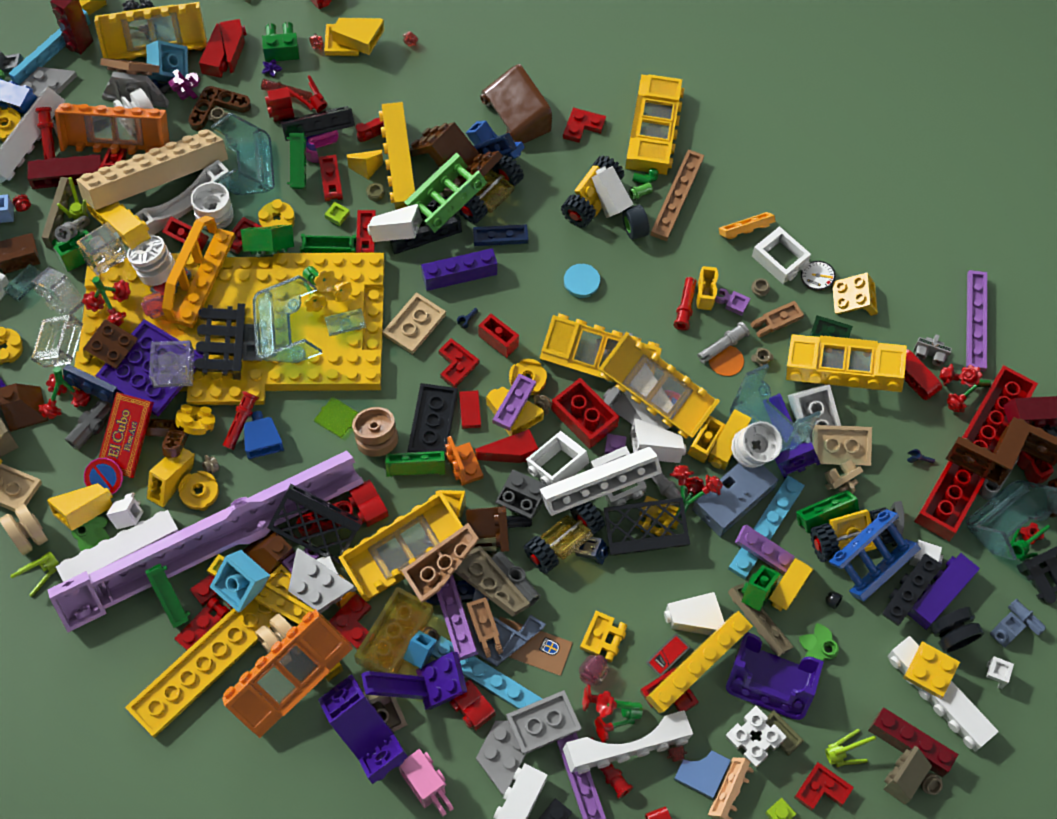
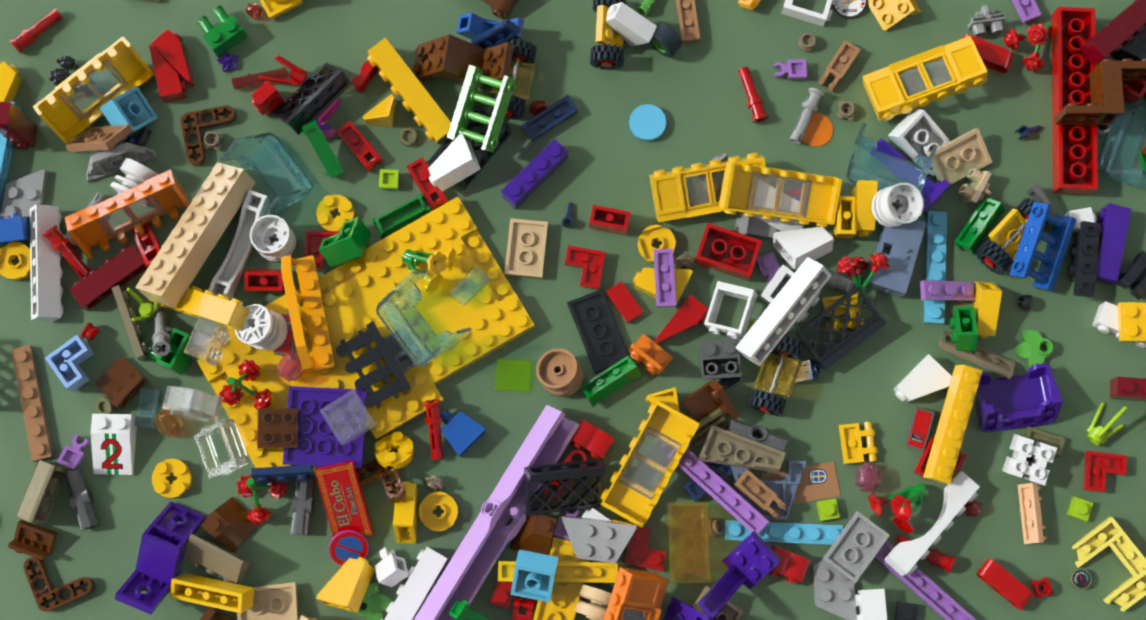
camera: 25 degrees left, 15 degrees up
(30, 301) = (167, 423): none -> clear orange head
(184, 85) = (161, 128): magenta hips -> none
(420, 649) = (718, 544): dark azure brick -> none
(437, 565) = (694, 469): medium nougat wedge -> none
(496, 220) = (537, 107): none -> clear red plate
(540, 680) = (827, 509): none -> lime plate
(703, 775) = (1003, 512): medium blue tile -> none
(707, 288) = (766, 74): yellow brick -> none
(827, 327) = (890, 52): dark green bracket -> none

